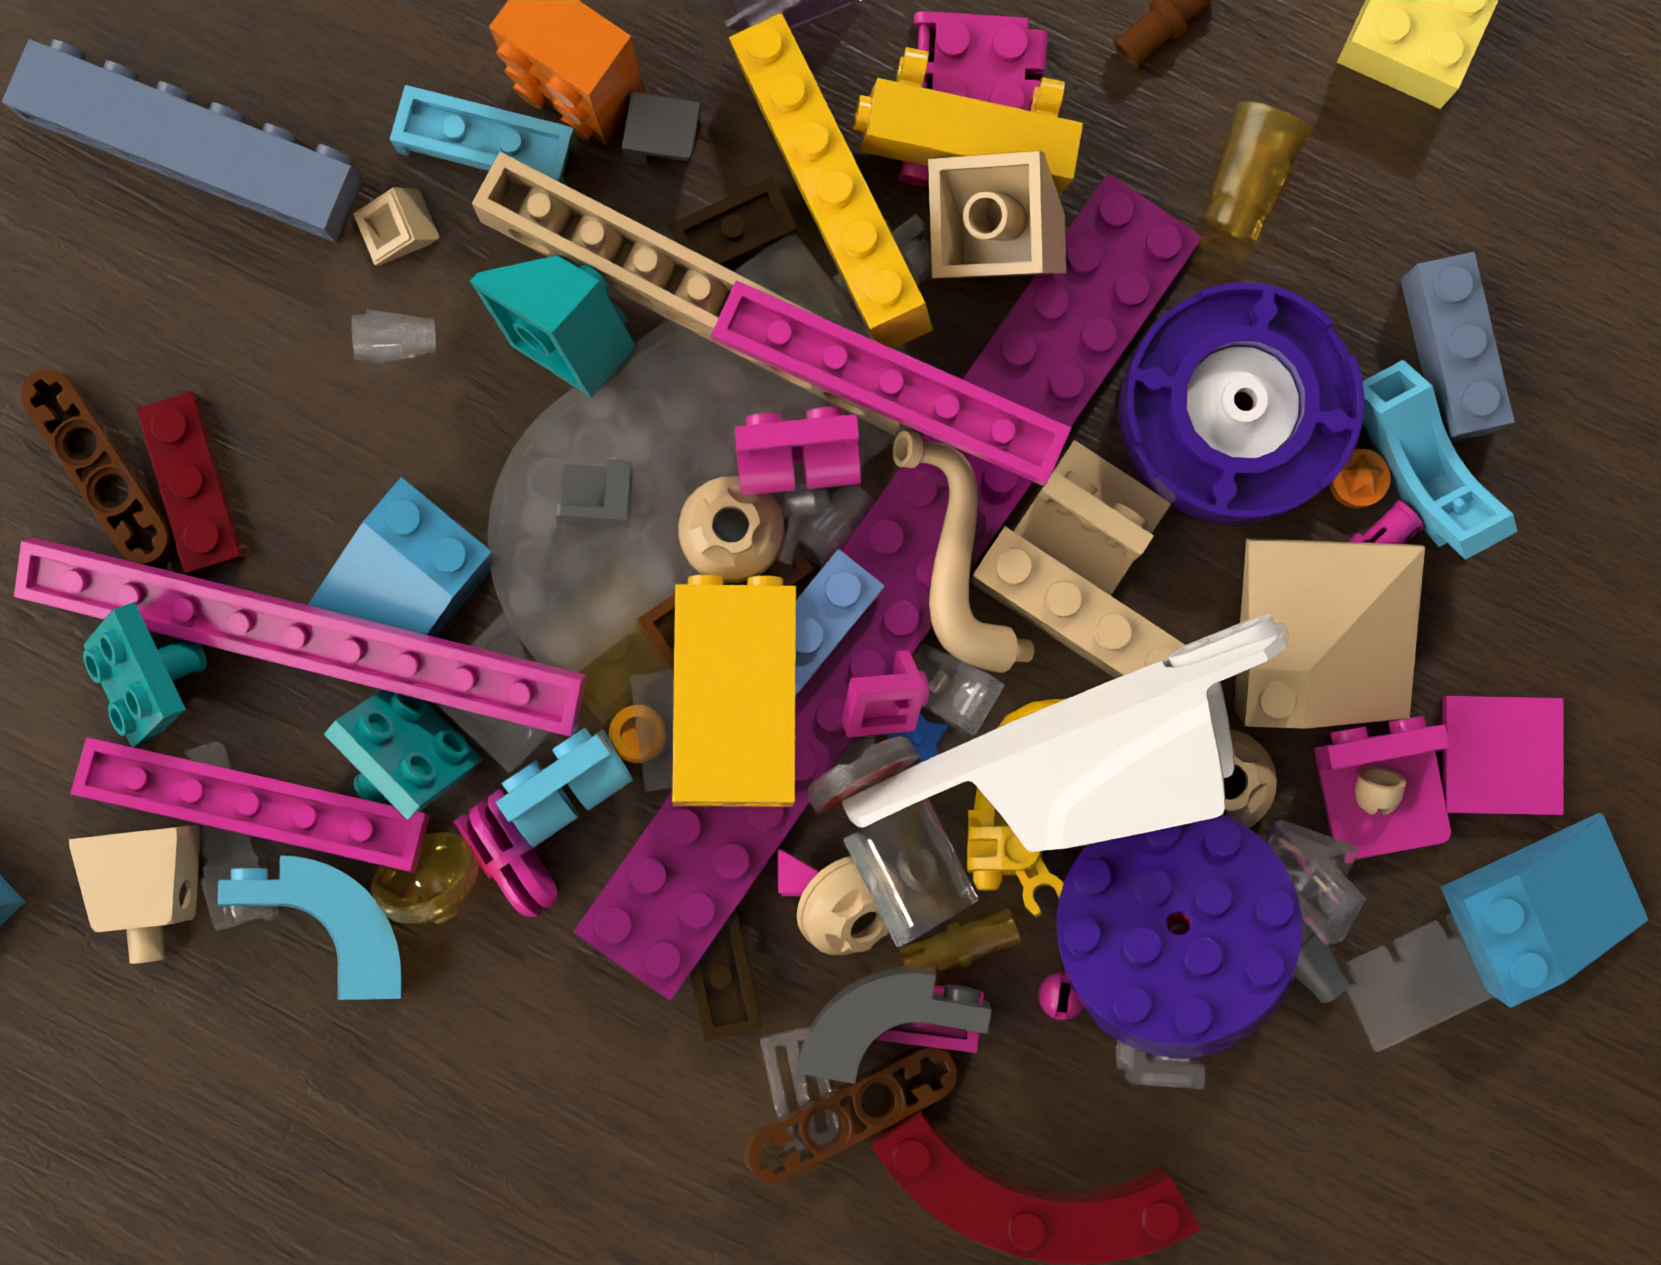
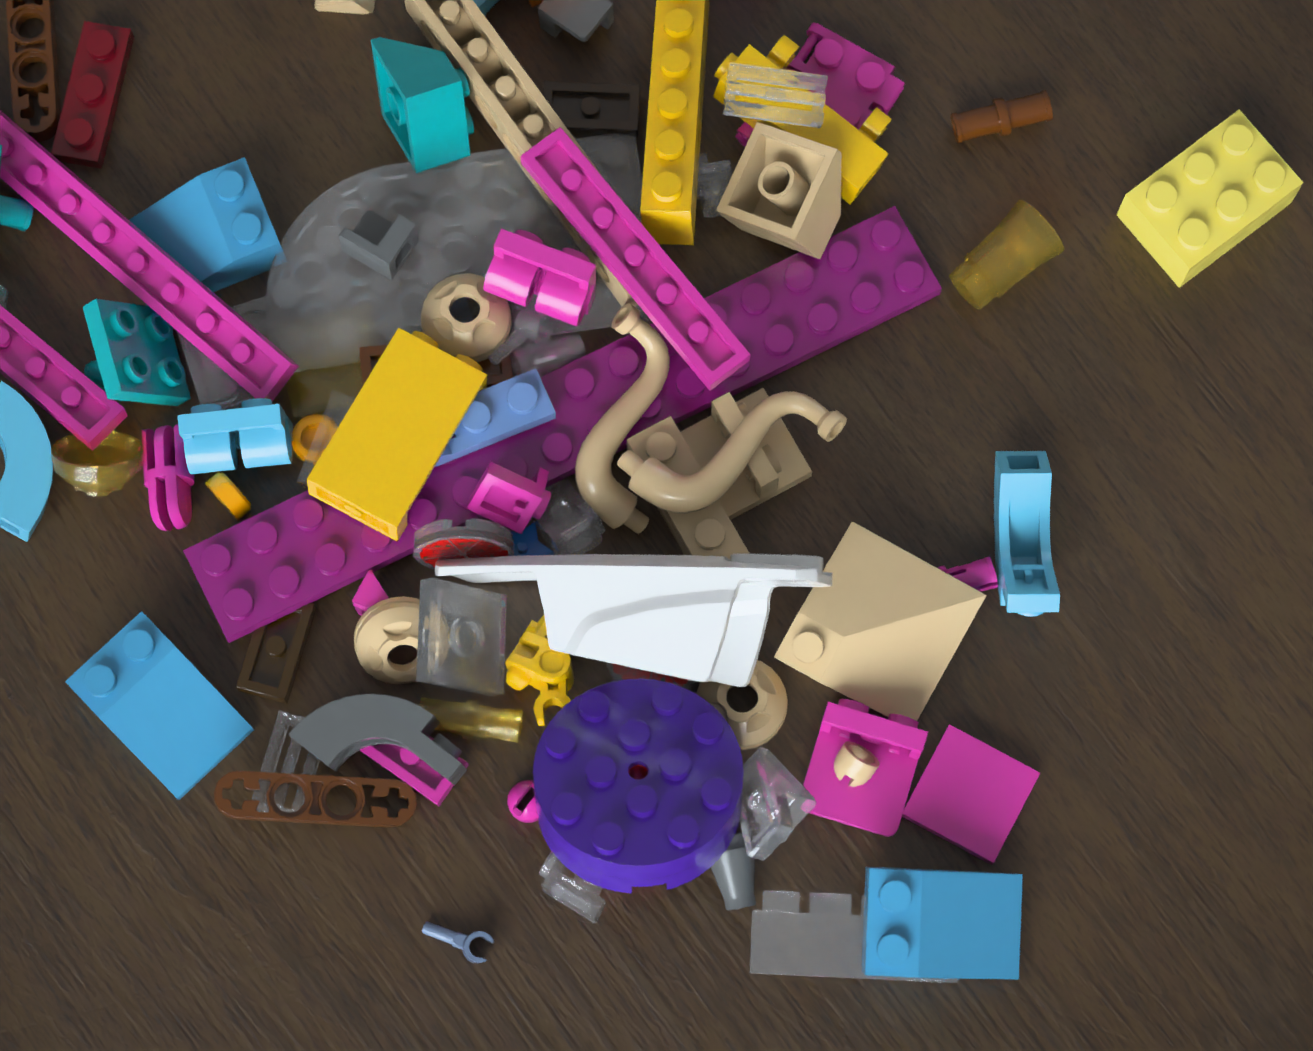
camera: 30 degrees right, 10 degrees down
(390, 336) = (296, 61): clear cone -> none
(583, 844) = (229, 495): none -> light orange tile
(635, 1100) = (159, 705): none -> dark azure slope
(981, 104) = (779, 77): none -> clear tile
(1029, 1220) = (401, 950): dark red brick -> none
(1068, 609) = (697, 491): none -> tan animal
(1071, 1173) = (457, 939): none -> sand blue hand
(1287, 372) = (948, 409): dark purple piece -> none
(1361, 480) = (969, 527): orange tile -> none
(1457, 345) = (1093, 464): sand blue brick -> none

